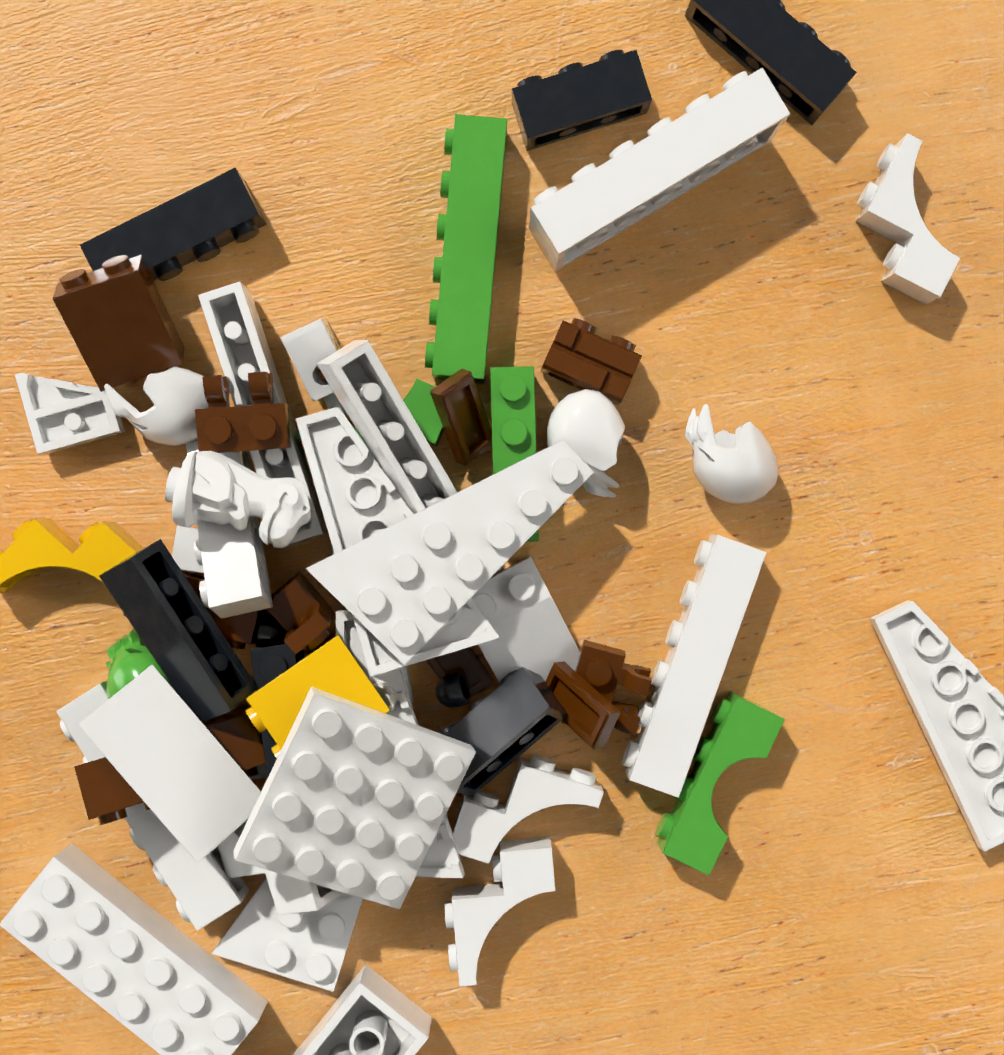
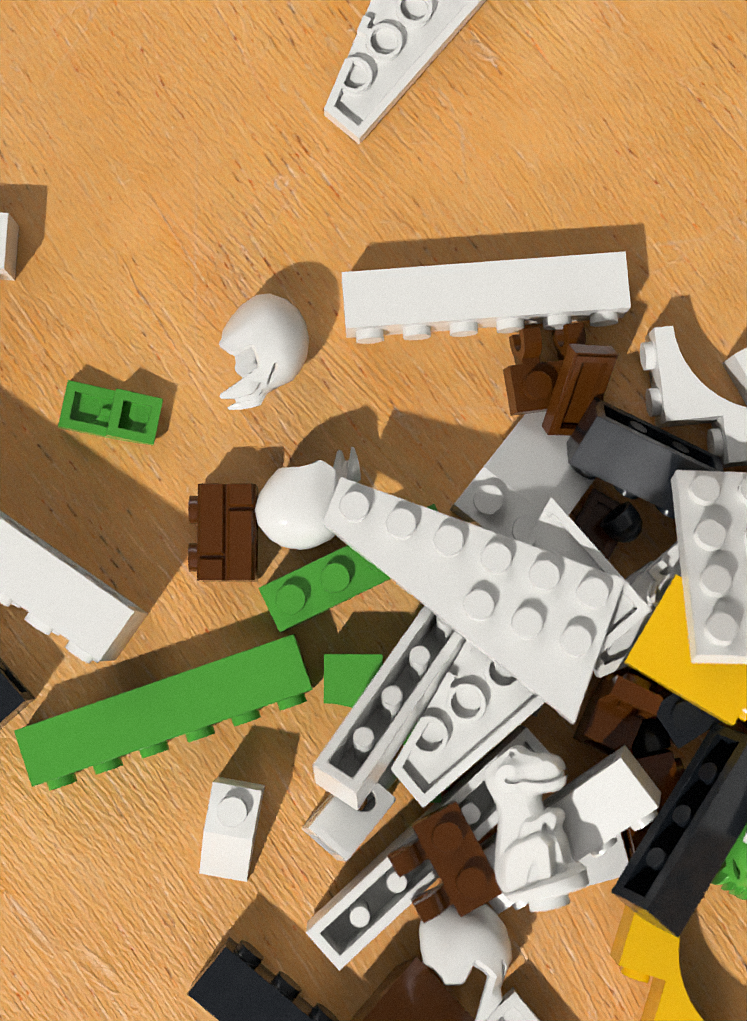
camera: 130 degrees left, 5 degrees down
(352, 262) = (230, 828): none -> white slope
(463, 416) = (341, 638): reddish brown tile -> none
(733, 311) = (110, 413): none -> bright green slope
(739, 733) = (532, 221): bright green arch -> none

